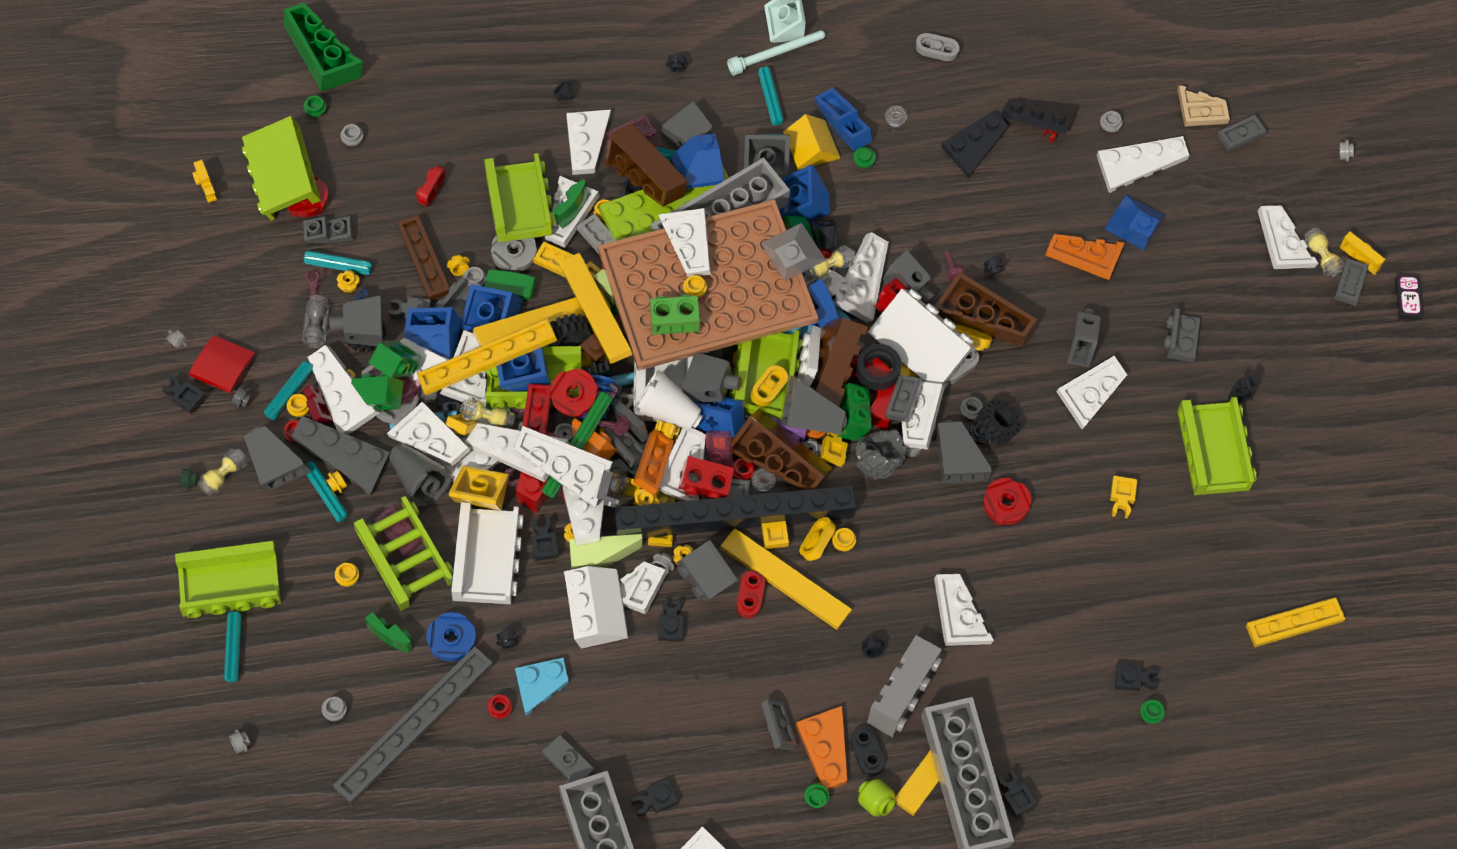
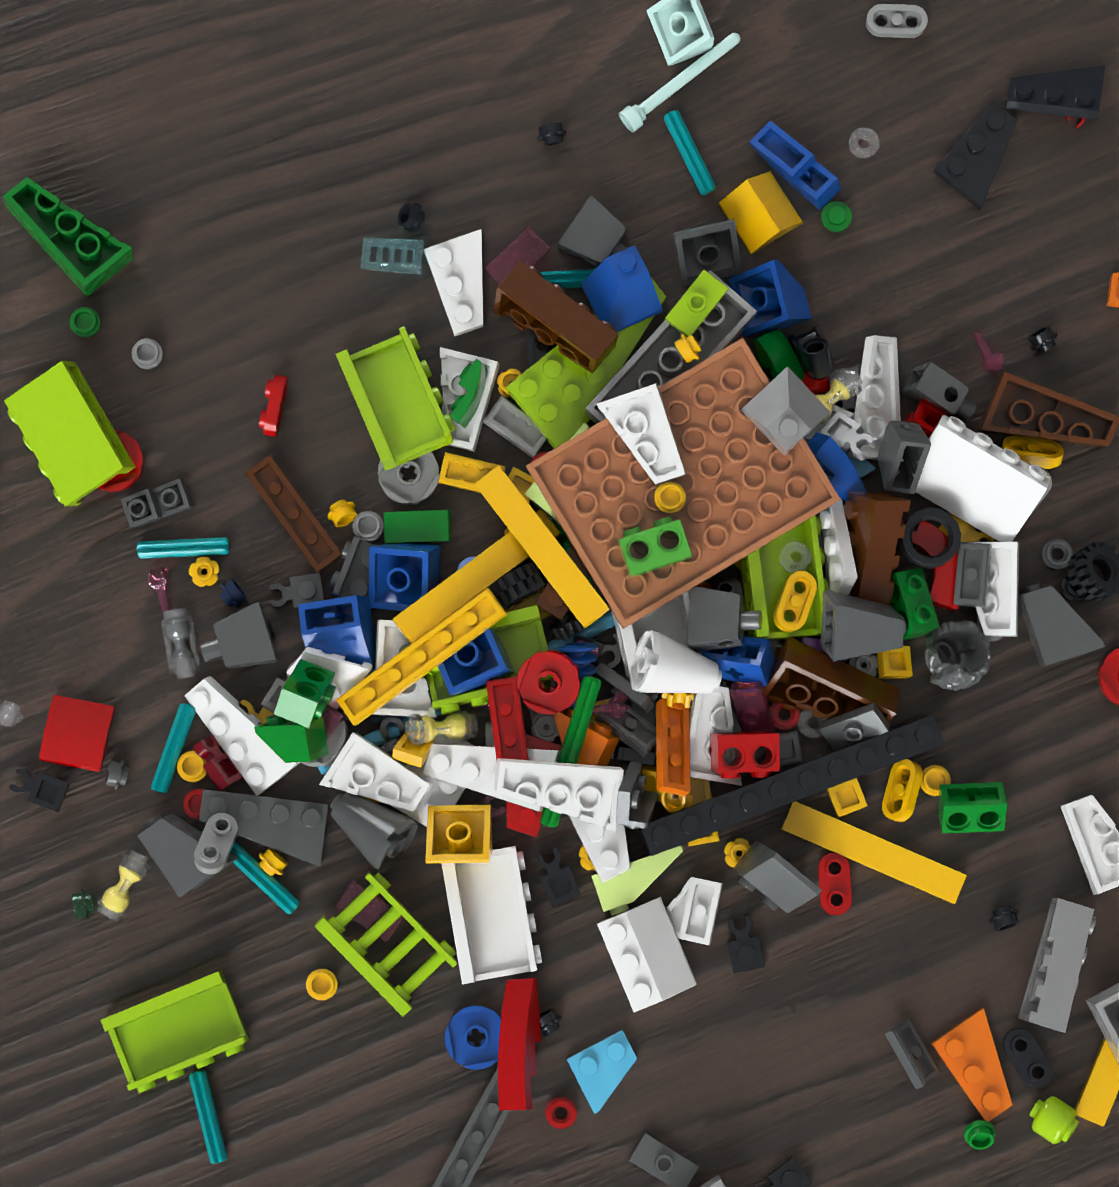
camera: 10 degrees left, 20 degrees up
(299, 448) = (216, 841): none -> light grey plate
(334, 708) = (357, 1167): light grey plate -> none
(392, 636) = (409, 1056): green slope -> none
(481, 640) = (517, 1041): none -> red slope
(548, 121) = (393, 244): none -> clear light blue slope
(663, 561) = (714, 871): light grey plate -> none
(734, 198) = (688, 347): none -> yellow plate
(747, 174) = (696, 304): none -> lime plate
(777, 352) = (785, 557): none -> clear plate
(792, 480) = (854, 726): none -> dark grey plate
(867, 554) = (972, 807): none -> green brick
(871, 304) = (904, 446): none -> dark grey torso

